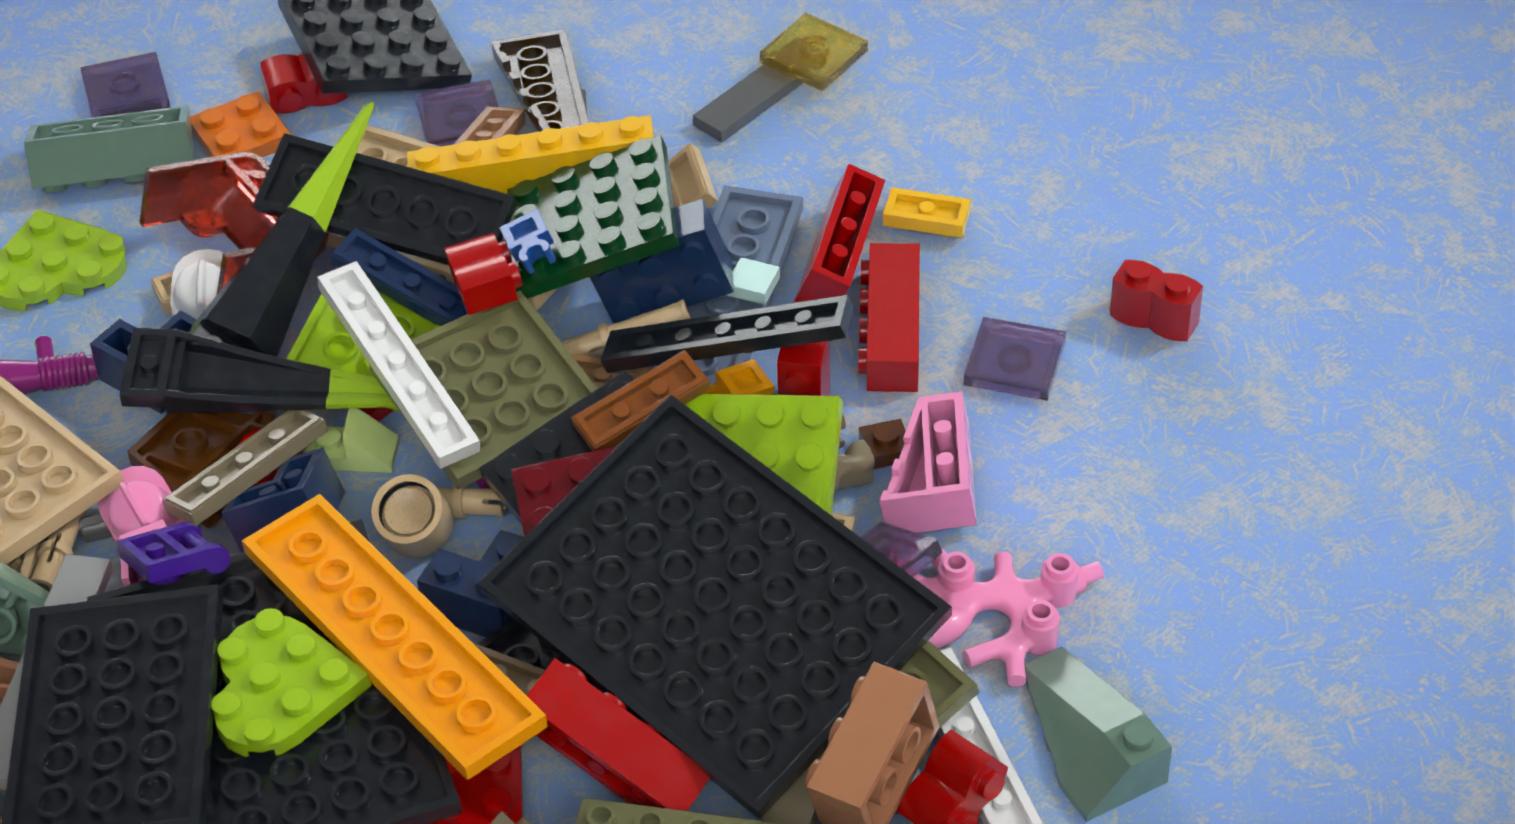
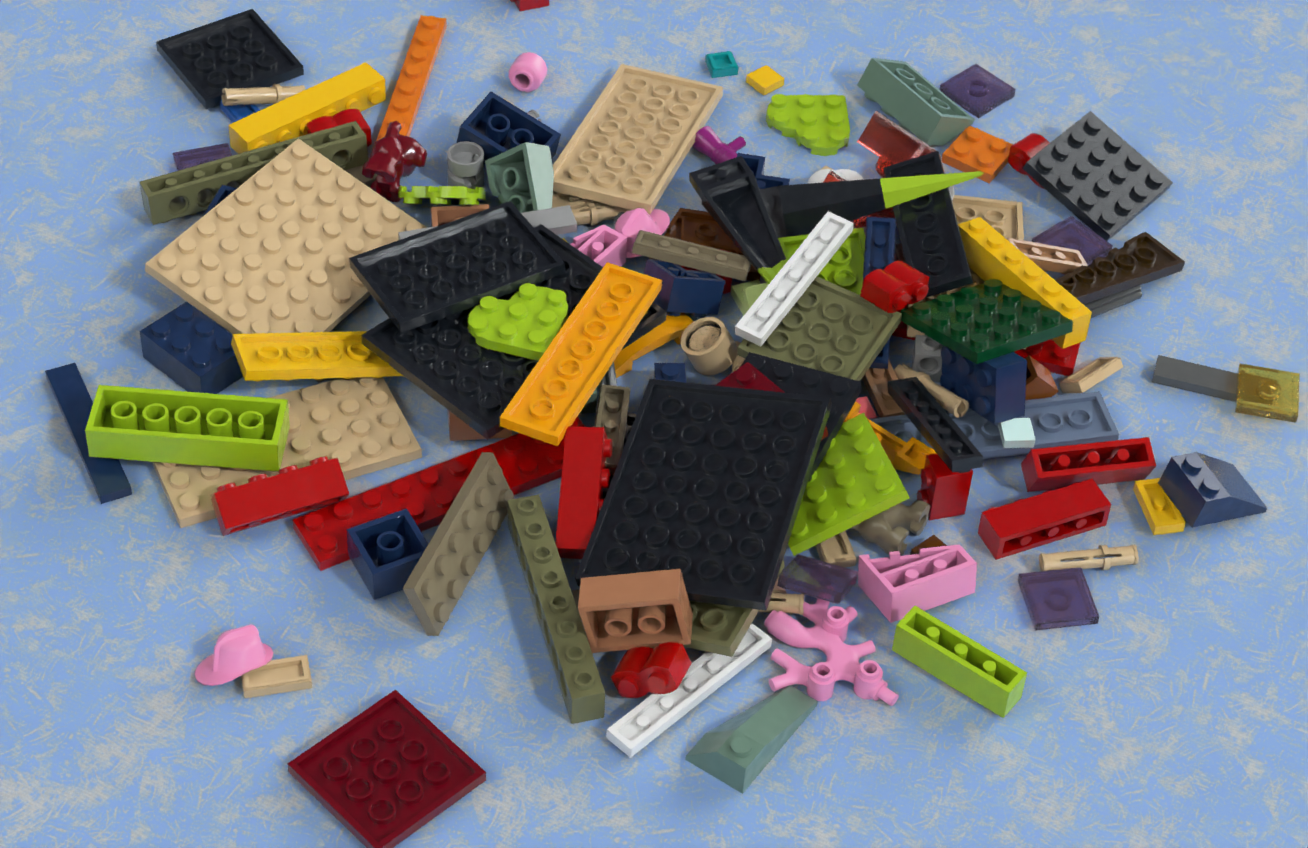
camera: 60 degrees right, 0 degrees up
(171, 552) = (583, 236): dark purple plate -> none
(529, 239) = (932, 293): plate -> none
(571, 310) = (927, 357): none -> light grey brick
(622, 411) = (845, 399): dark orange tile -> none
(939, 162) = (1208, 490): none -> dark blue slope
(977, 293) = (1124, 556): none -> tan pin
(1083, 478) = (959, 661): none -> lime brick
(1156, 300) = (1161, 655): red brick -> none

